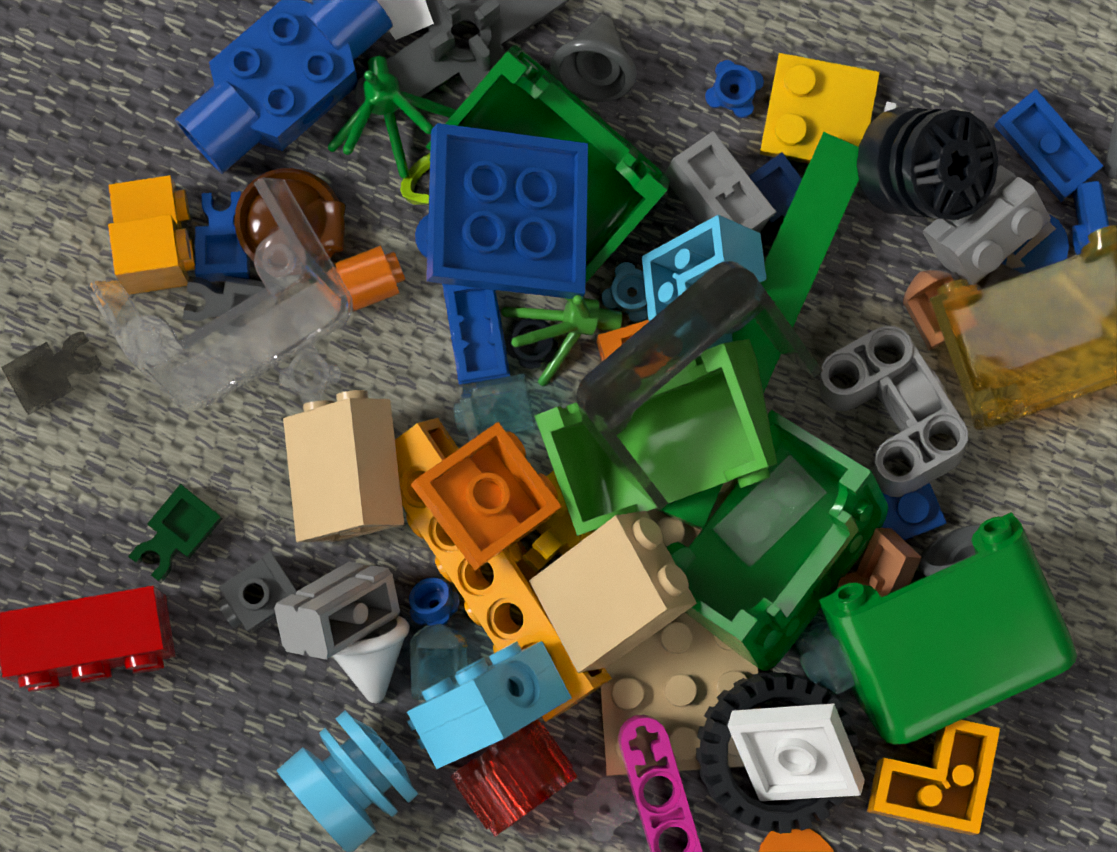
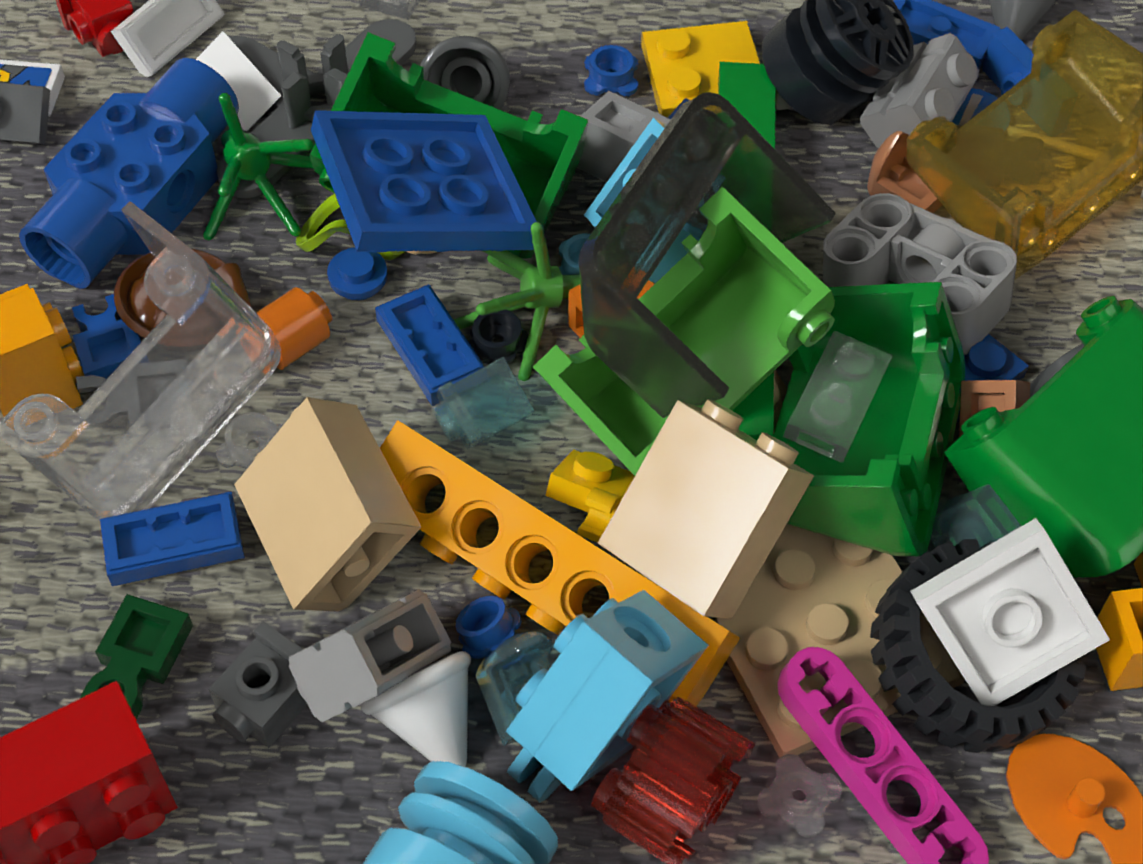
camera: 20 degrees left, 25 degrees down
(226, 441) = (171, 538): none -> blue plate
(487, 495) = (512, 458): orange plate -> none

